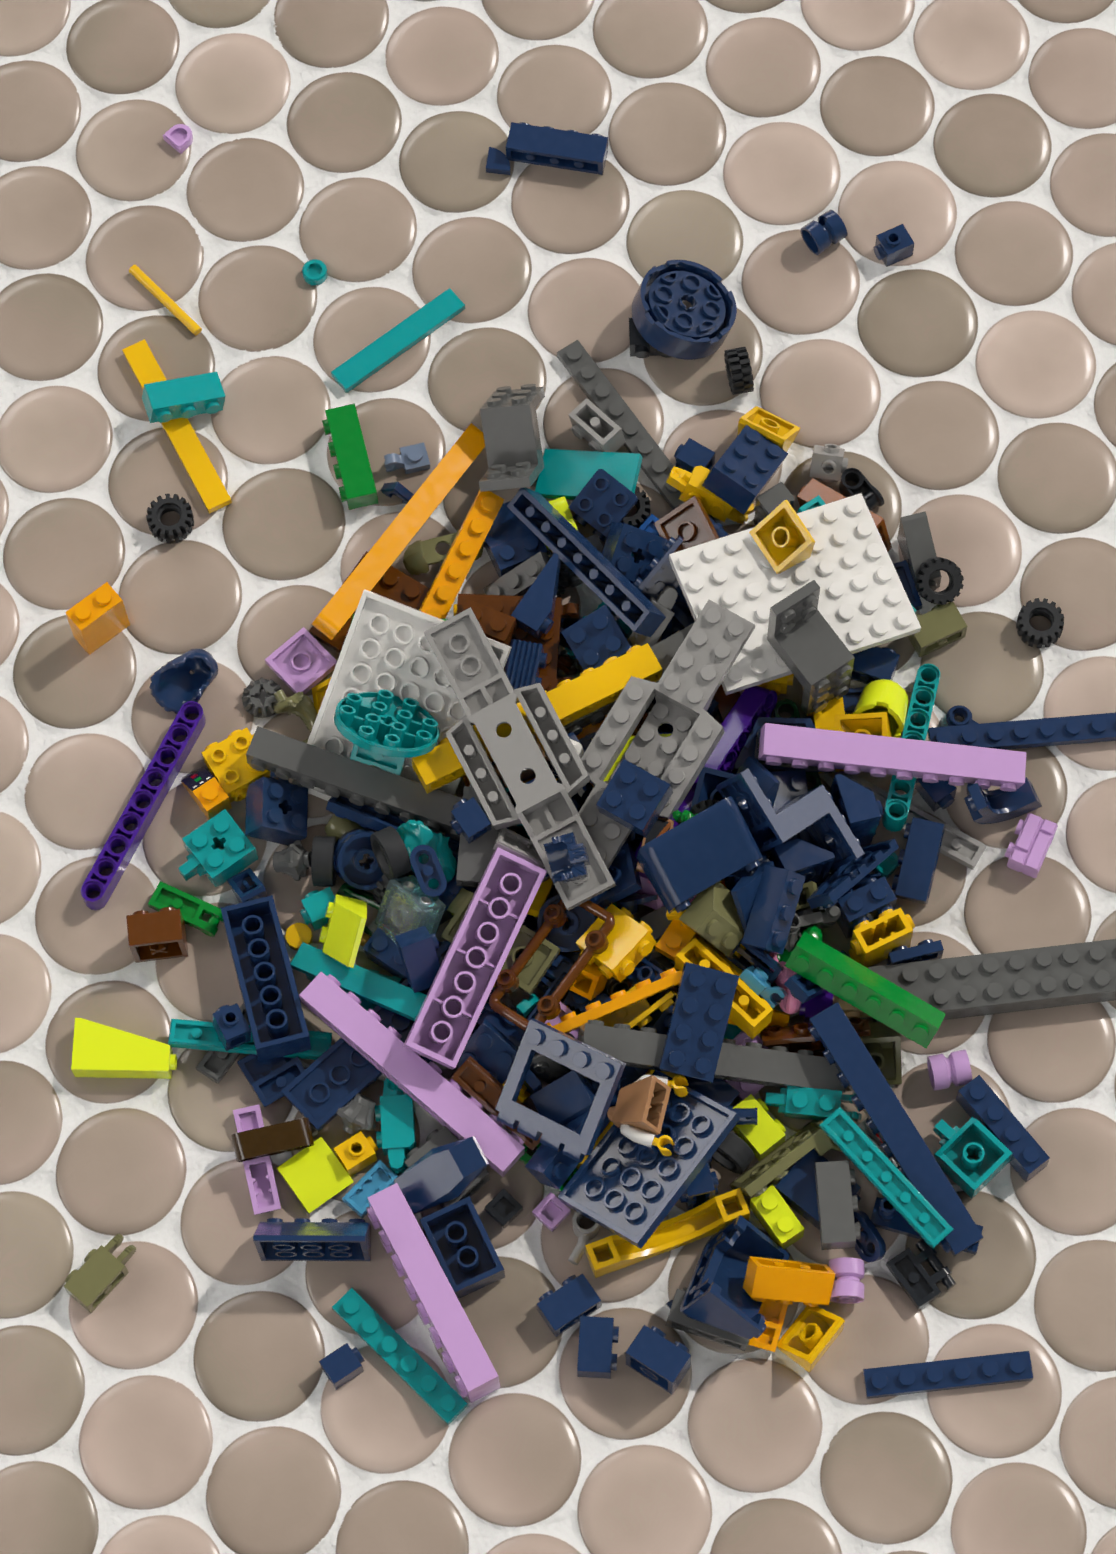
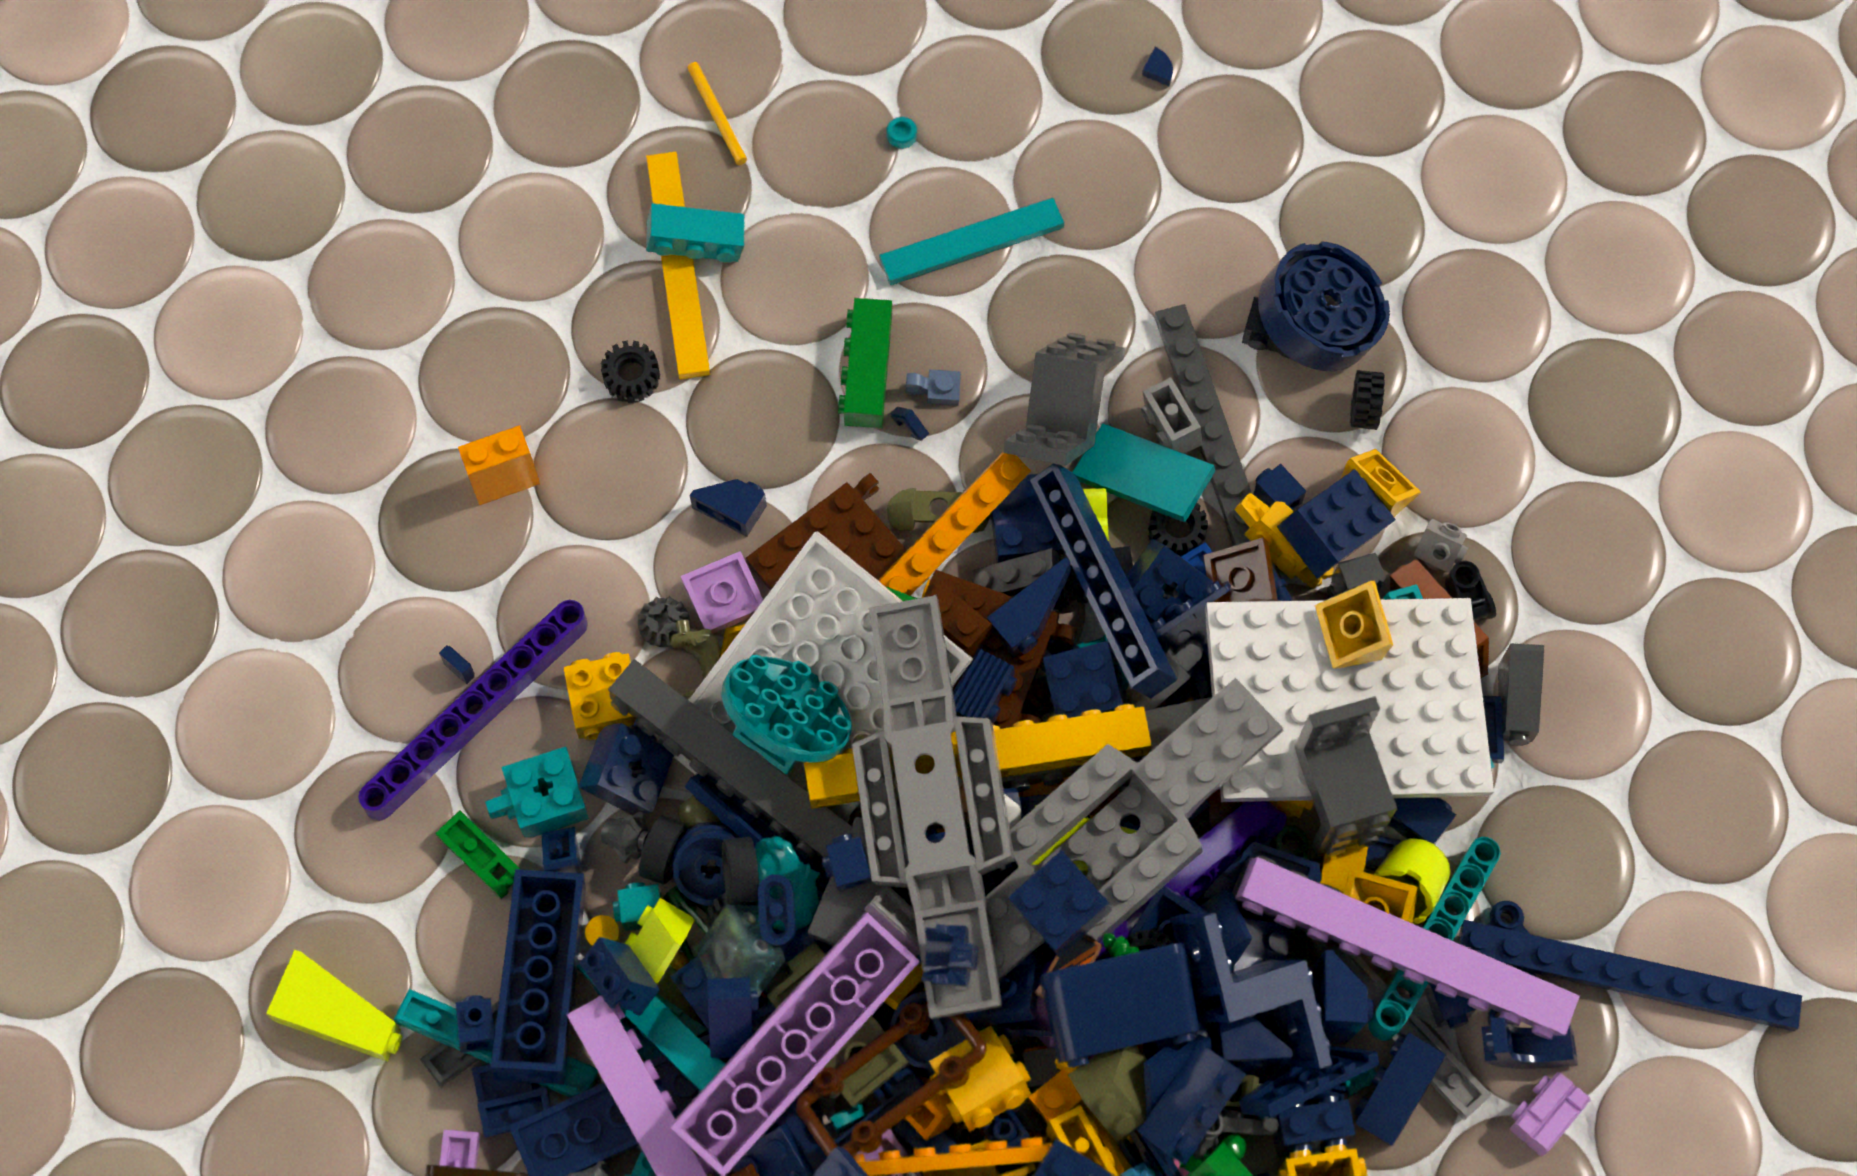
camera: 15 degrees right, 0 degrees up
(118, 776) = (457, 664): none -> dark blue tile
(157, 935) = (429, 877): reddish brown brick -> none
(175, 684) = (565, 571): dark blue piece -> none
(207, 792) = (554, 718): light orange slope -> none
(283, 594) = (731, 503): none -> dark blue slope
(327, 956) = (619, 975): none -> dark blue hinge
(400, 531) = (893, 471): light orange beam -> none
(557, 148) = (1234, 71): dark blue brick -> none
(602, 502) = (1149, 511): dark blue bracket -> none
(821, 233) = (1518, 265): dark blue wheel -> none
(893, 245) = (1604, 304): dark blue brick -> none
(938, 628) = (1515, 795): olive brick -> none
(953, 587) = (1543, 755): black tyre -> none
(1034, 636) = (1662, 818): black tyre -> none

